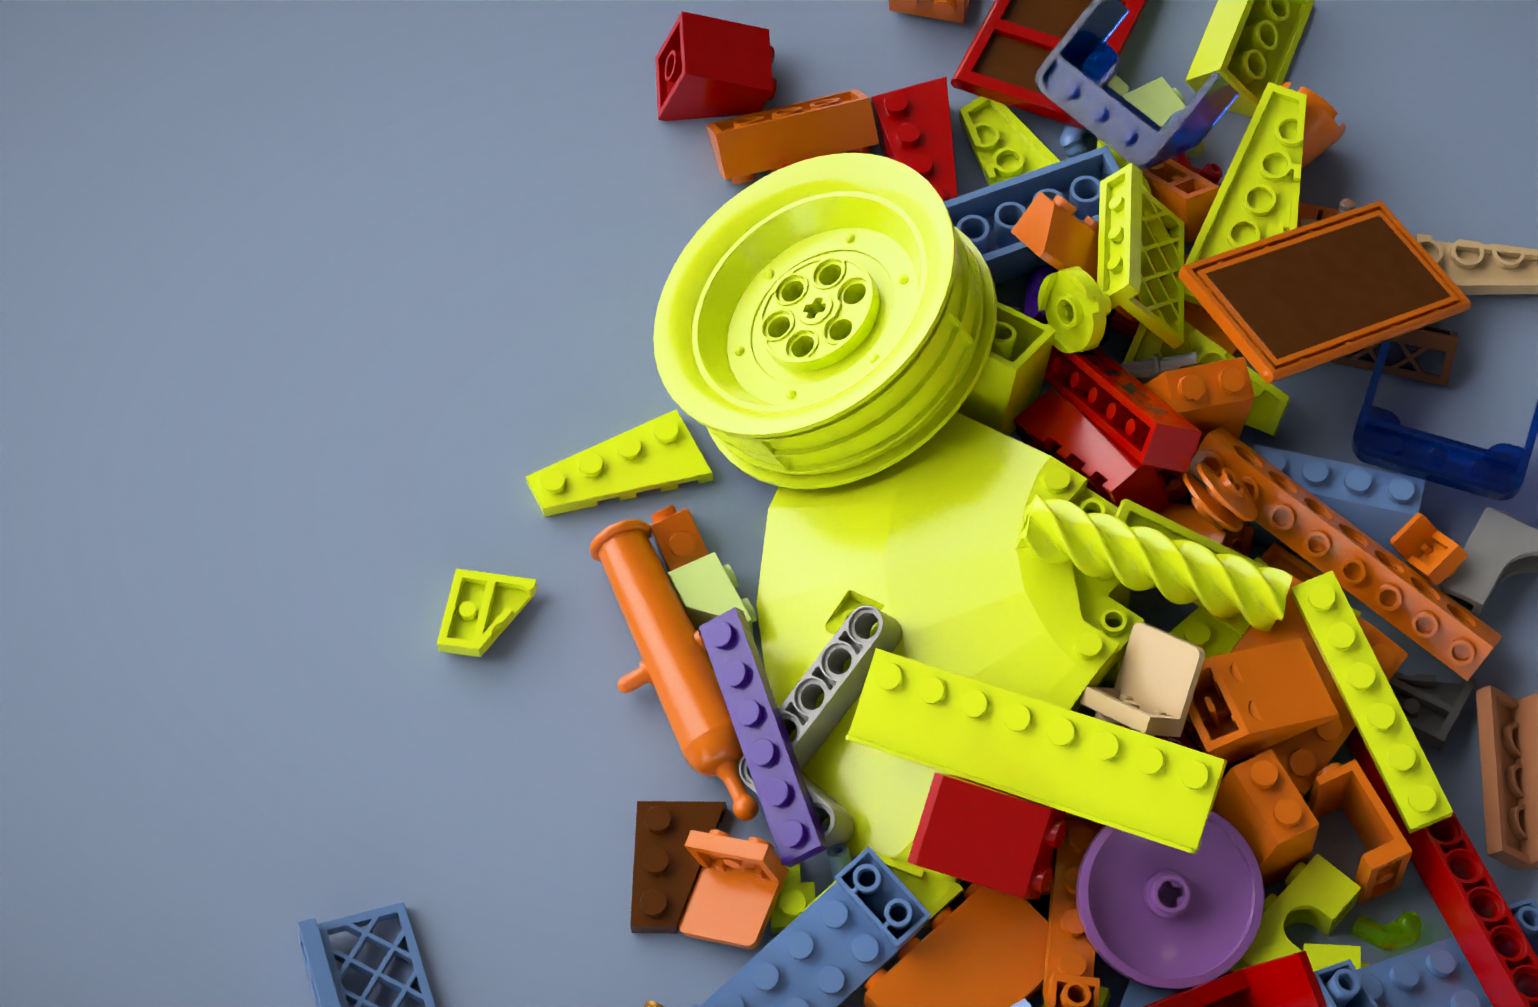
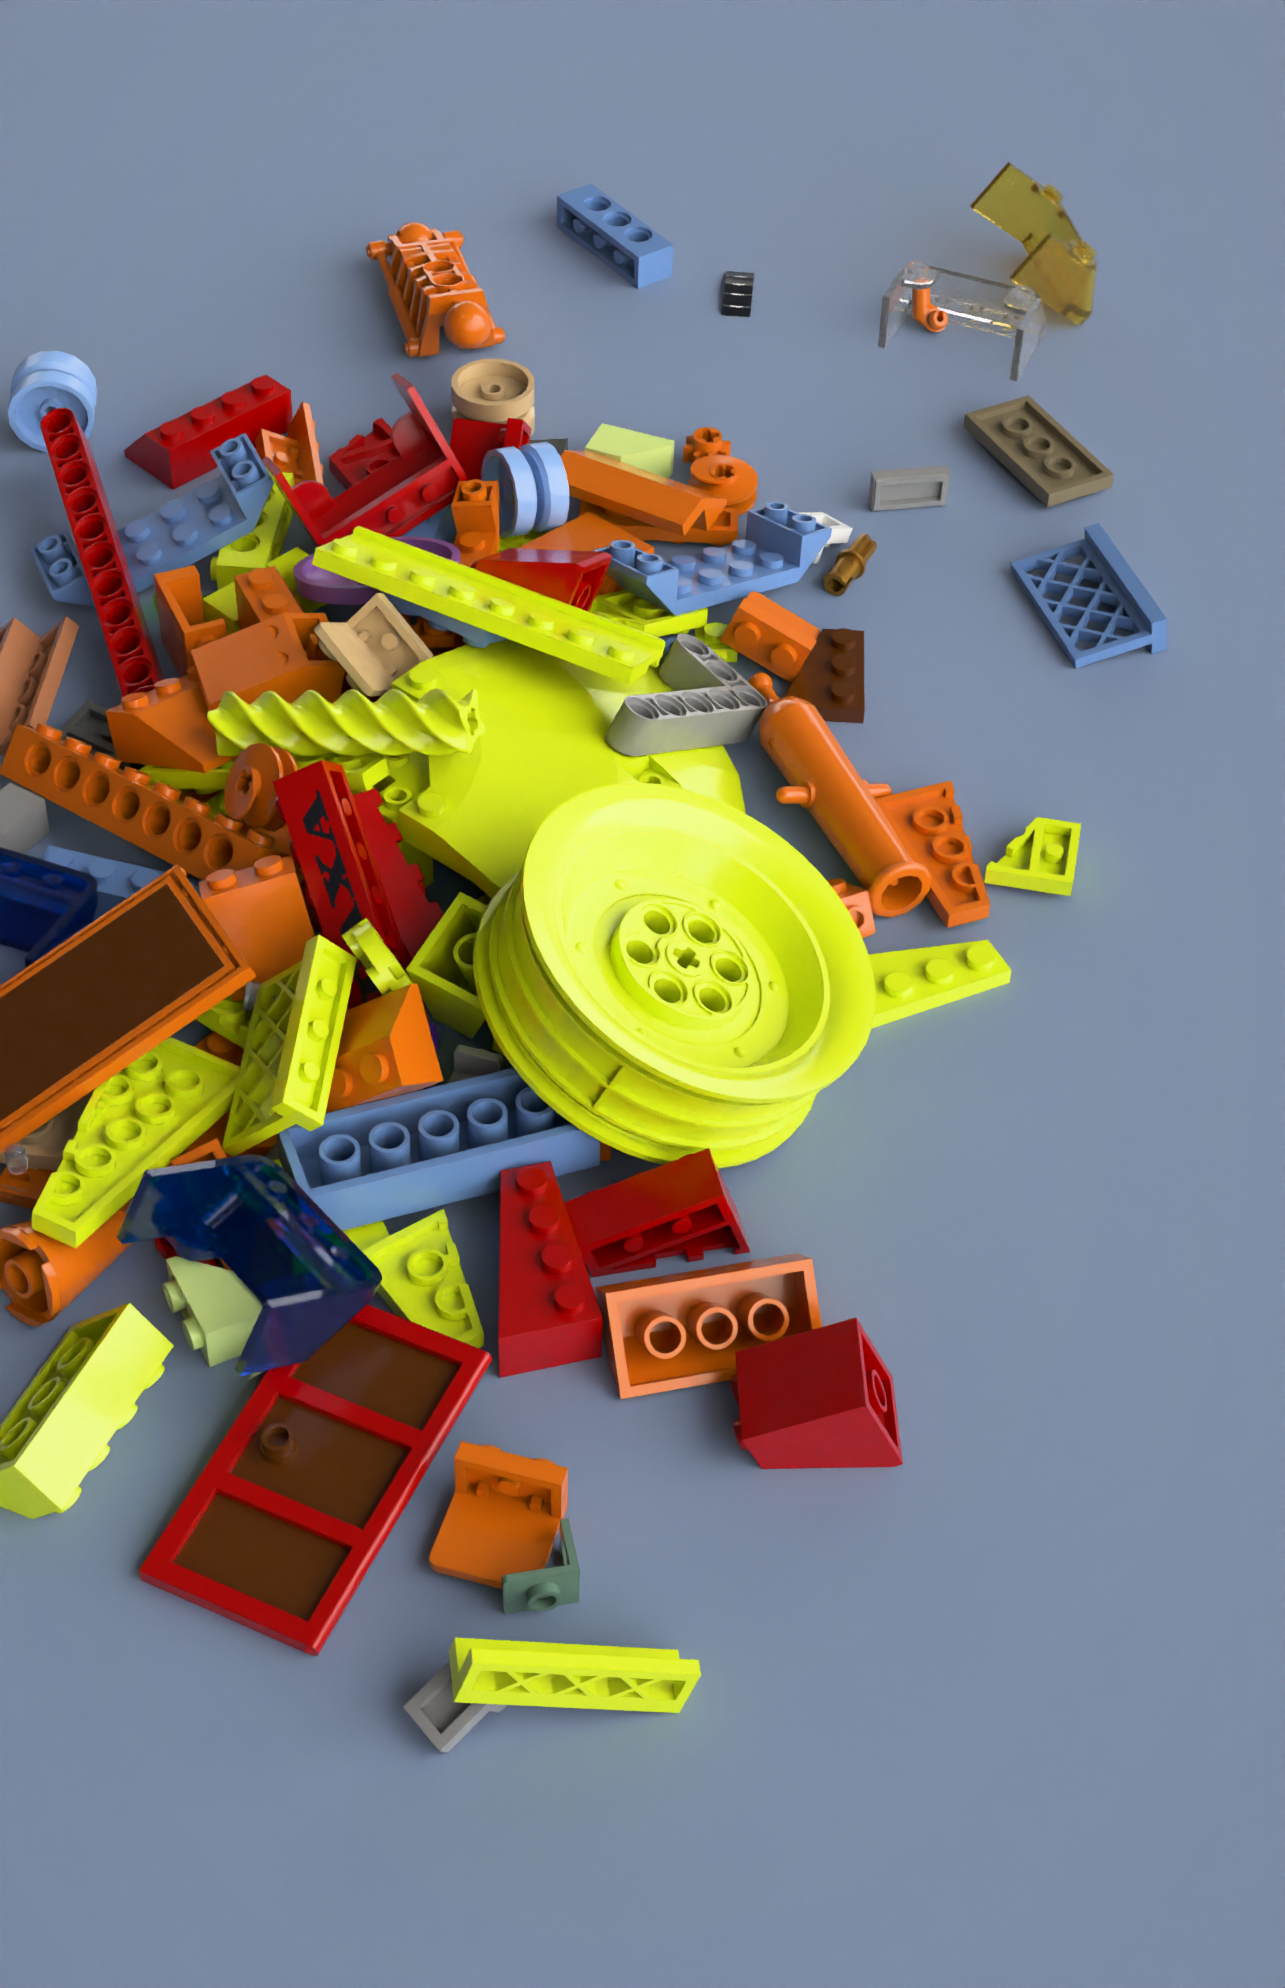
camera: 175 degrees right, 15 degrees down
(582, 622) = (934, 835): none -> orange wing
(709, 590) = (808, 836): yellowish green slope -> none
(763, 738) = (746, 699): plate -> none
(1371, 702) = (157, 665): neon yellow plate -> none
(1428, 549) = (46, 816): orange bracket -> none

